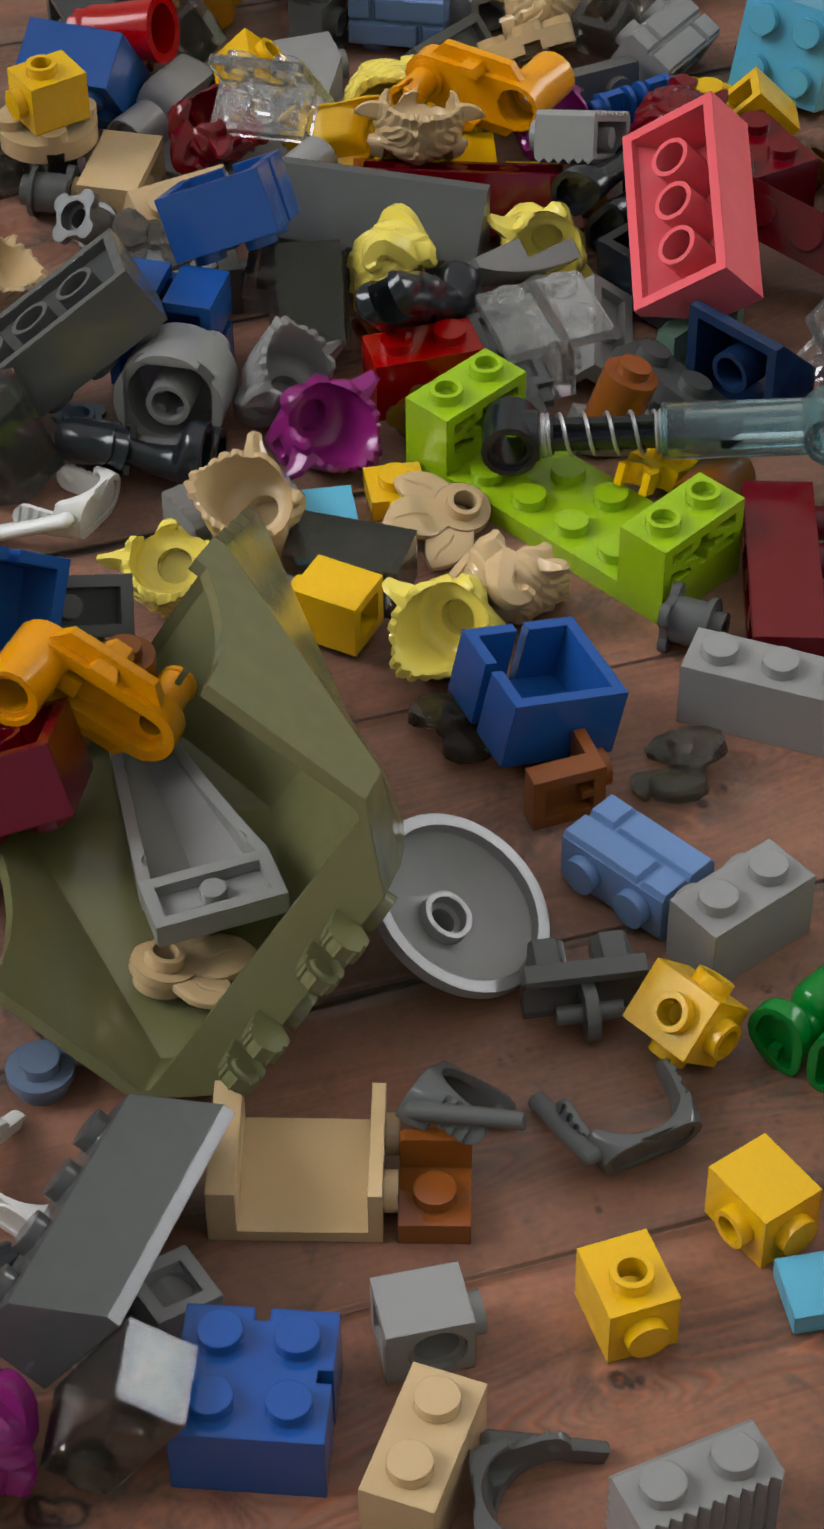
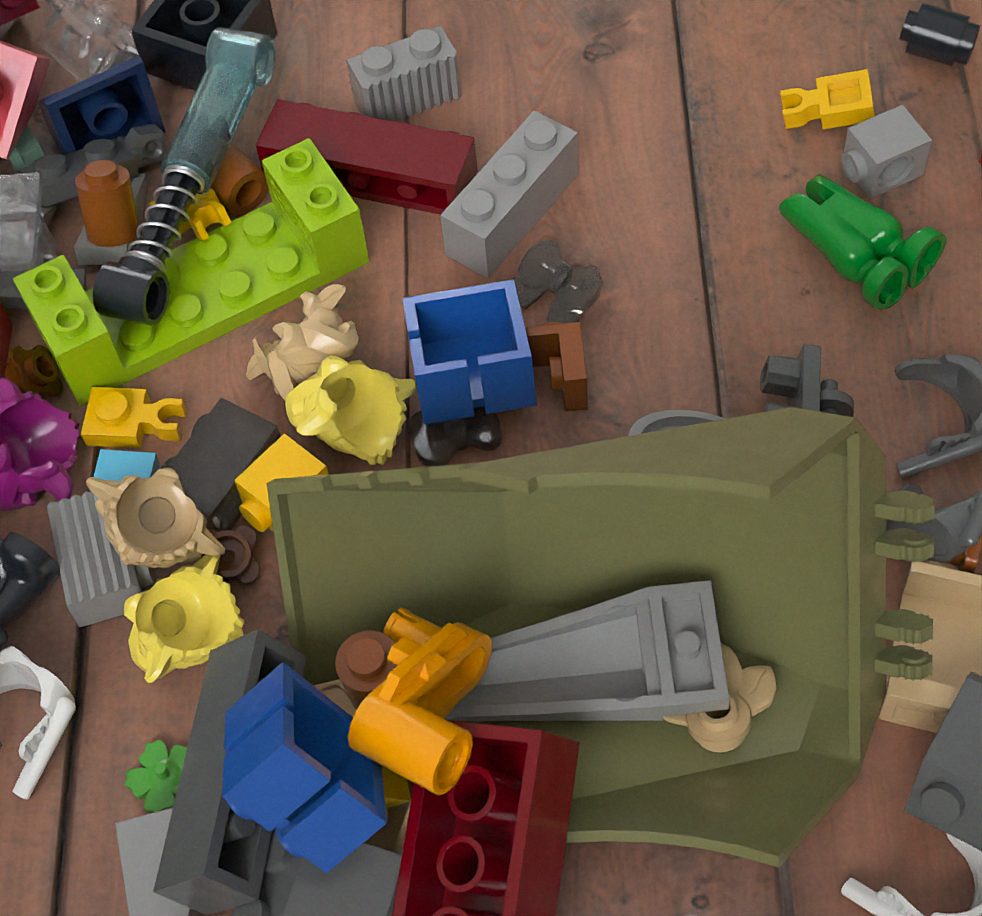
camera: 70 degrees left, 15 degrees up
(40, 1072) = (811, 861): sand blue plate -> none
(431, 509) = (177, 390): tan plate -> none
(630, 864) = (678, 338): medium blue brick -> none
(683, 615) = (396, 231): dark grey brick -> none
(687, 1013) = (859, 337): yellow brick -> none
(741, 911) = (753, 279): light grey brick -> none

